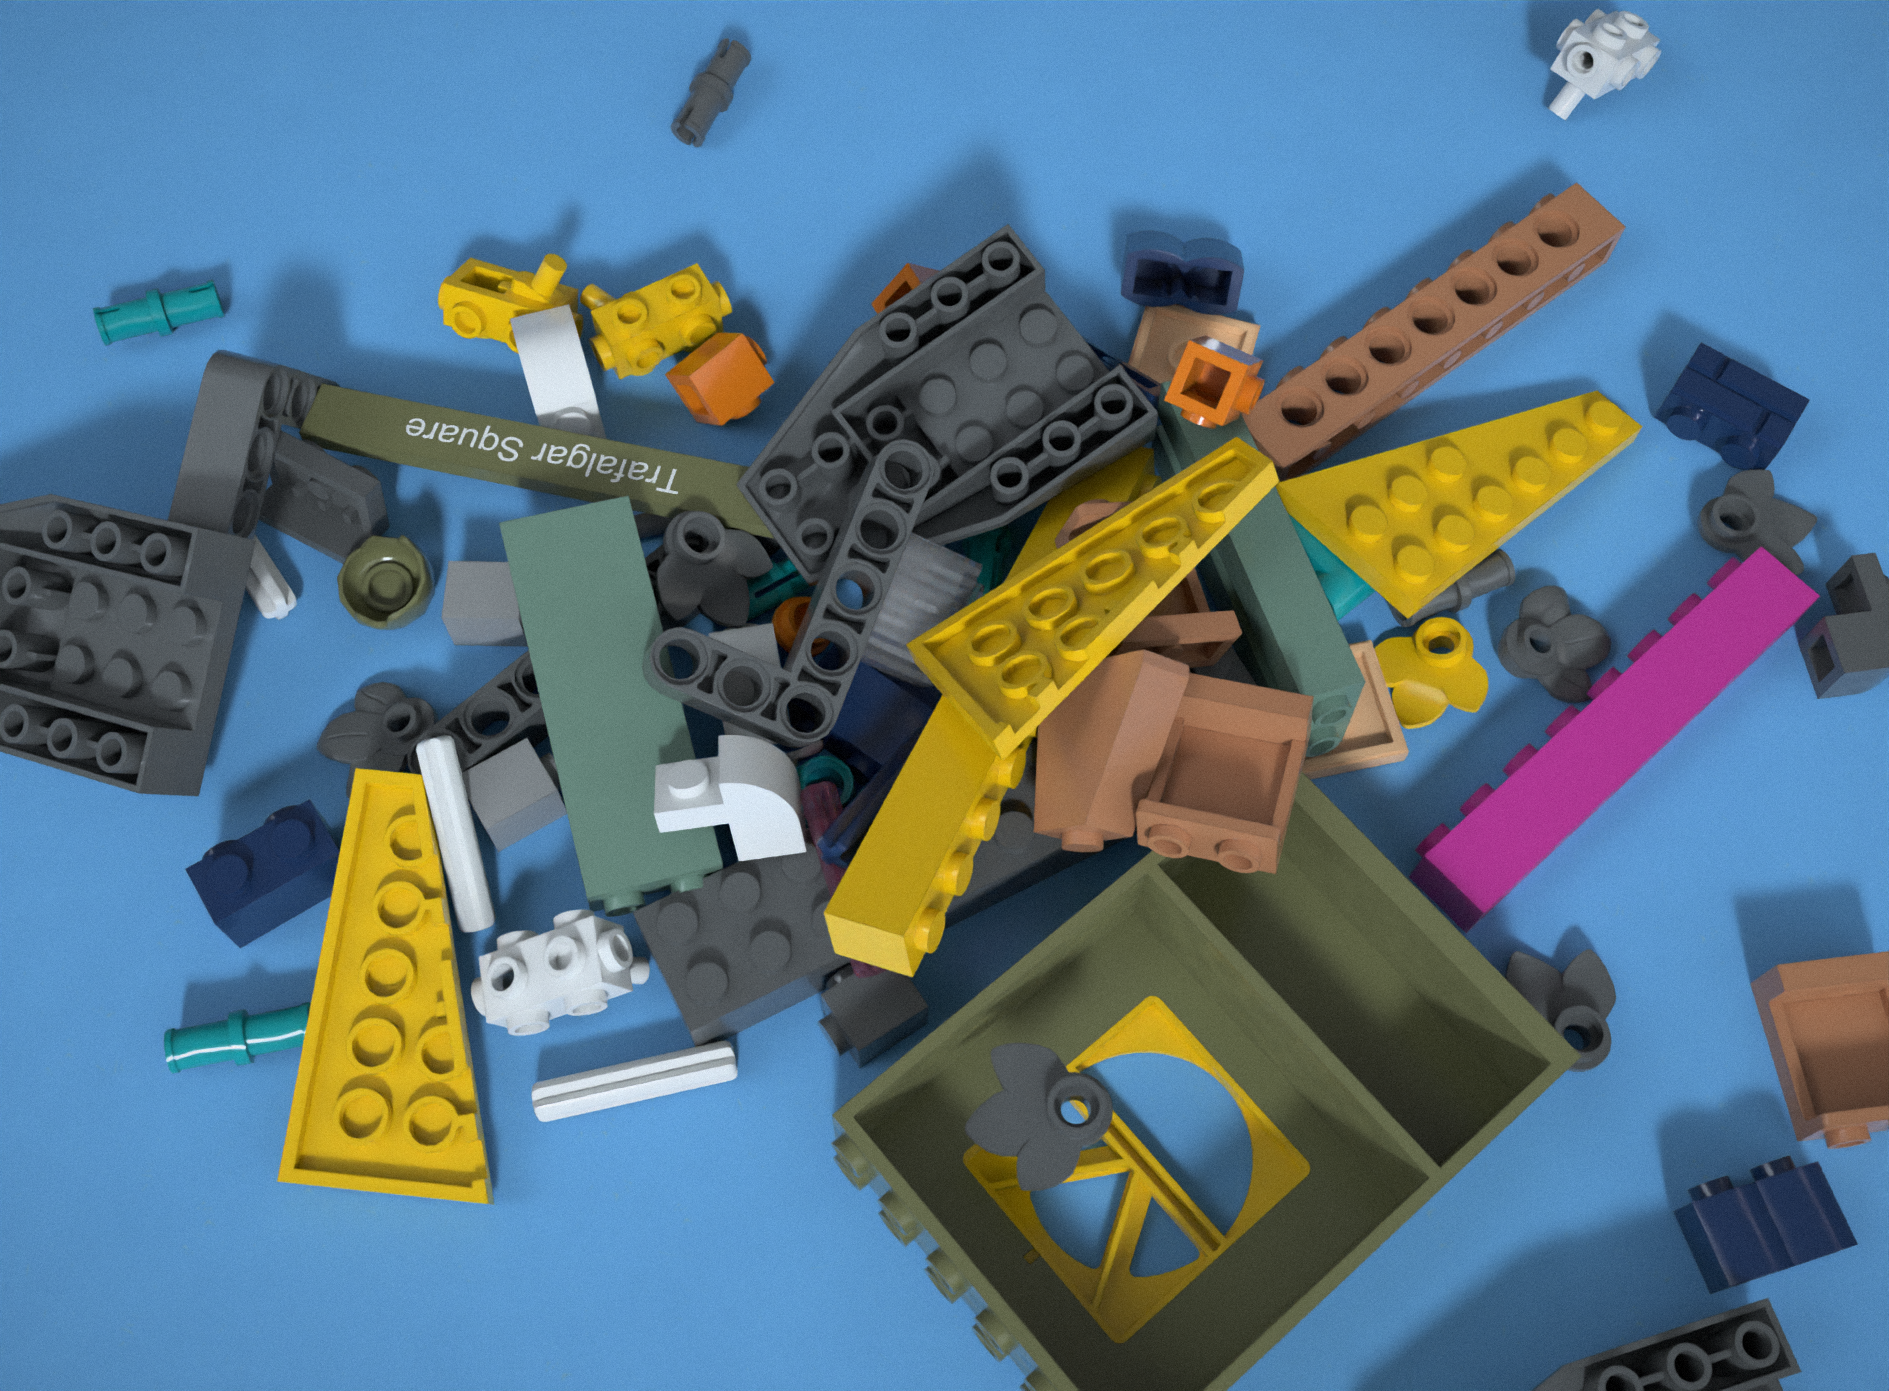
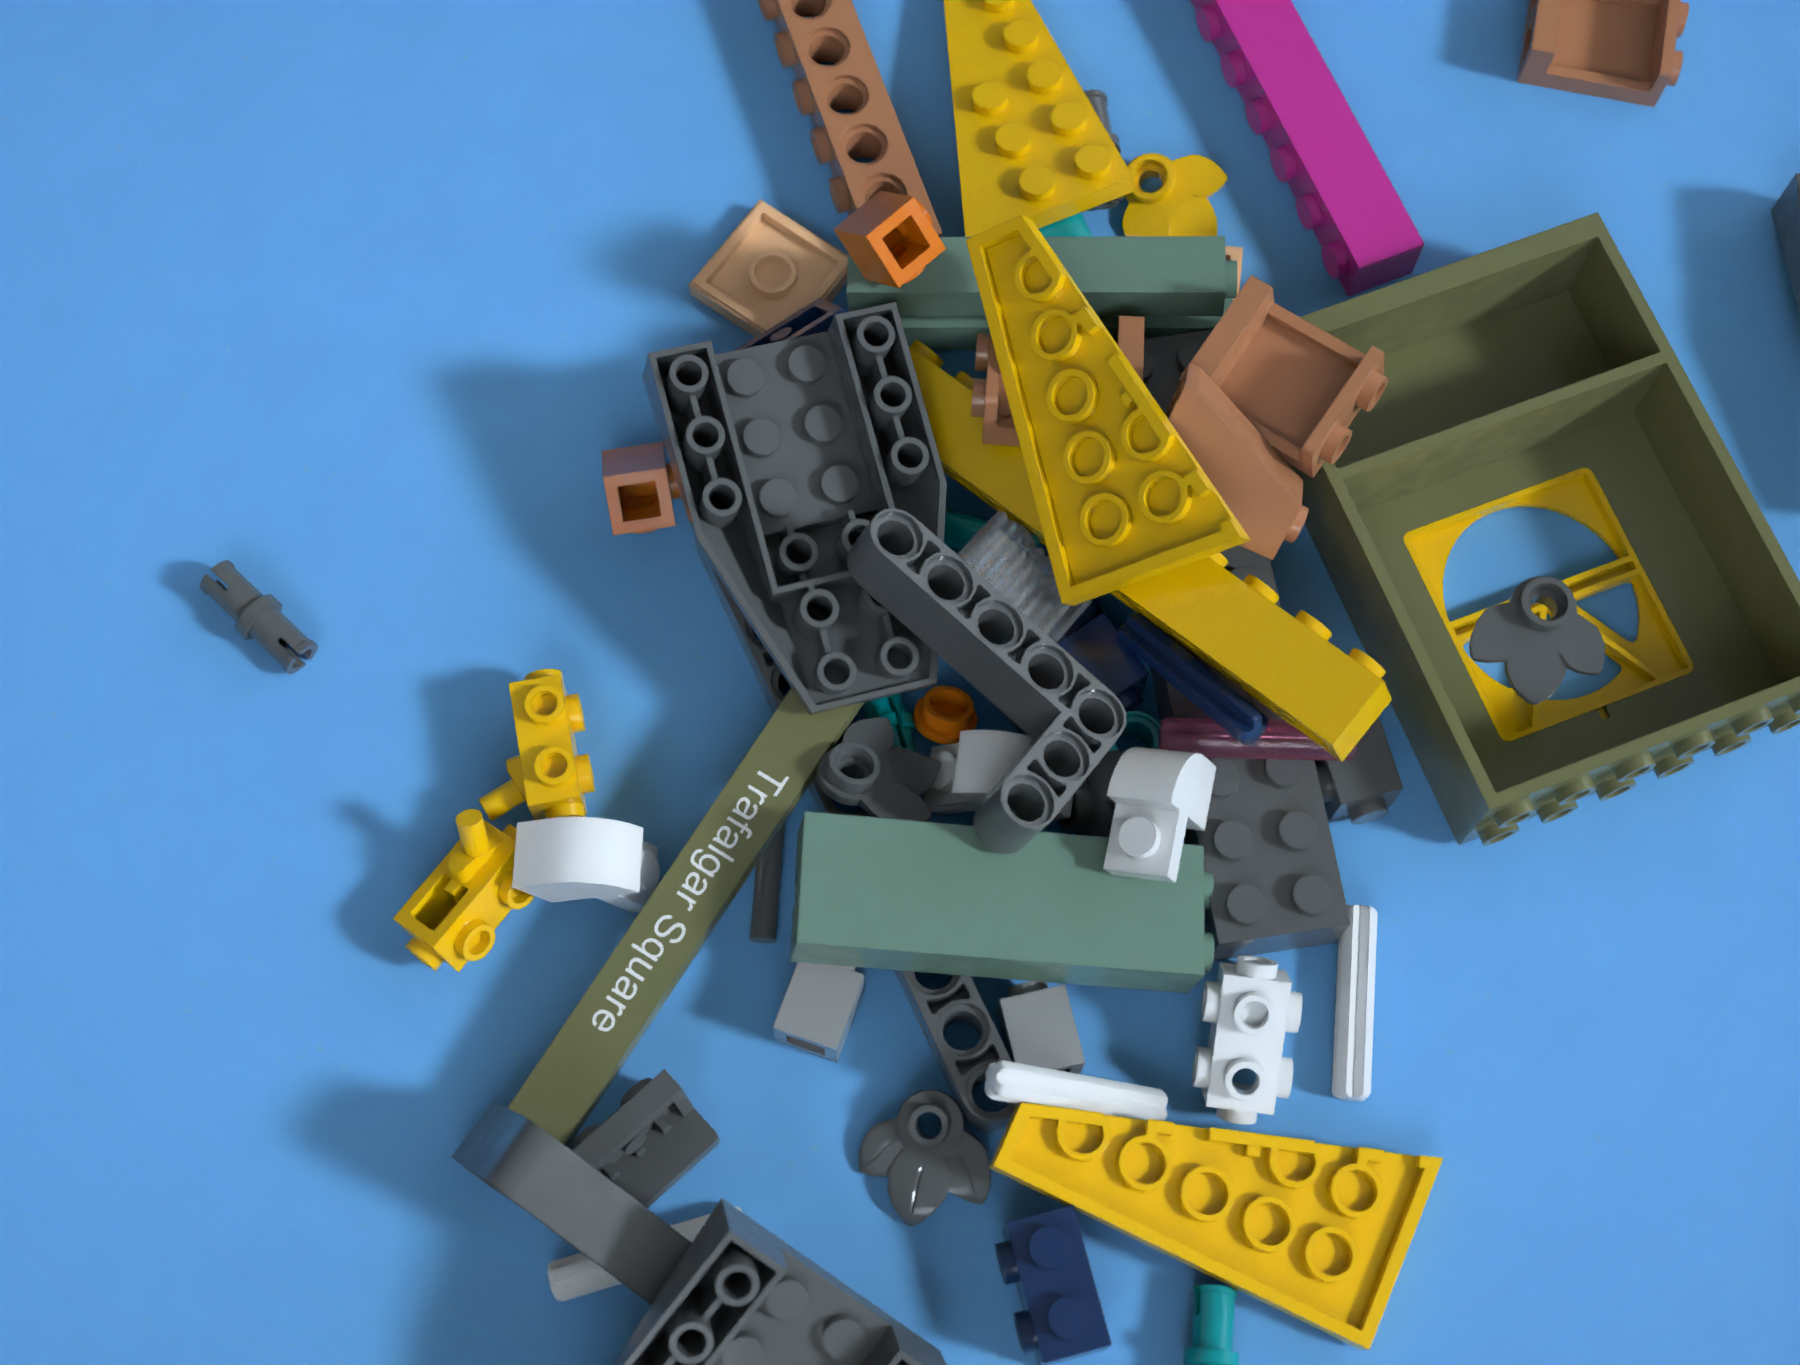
camera: 70 degrees left, 5 degrees up
(158, 312) = (313, 1283): teal pin -> none
(386, 583) = (763, 1103): olive hair -> none
(722, 378) = (641, 707): orange brick -> none
(1197, 273) = (685, 242): dark blue brick -> none
(1553, 645) = (1176, 94): dark grey plate -> none
(1569, 1000) = (1498, 217): dark grey plate -> none
(1763, 1225) = (1724, 157): dark blue brick -> none

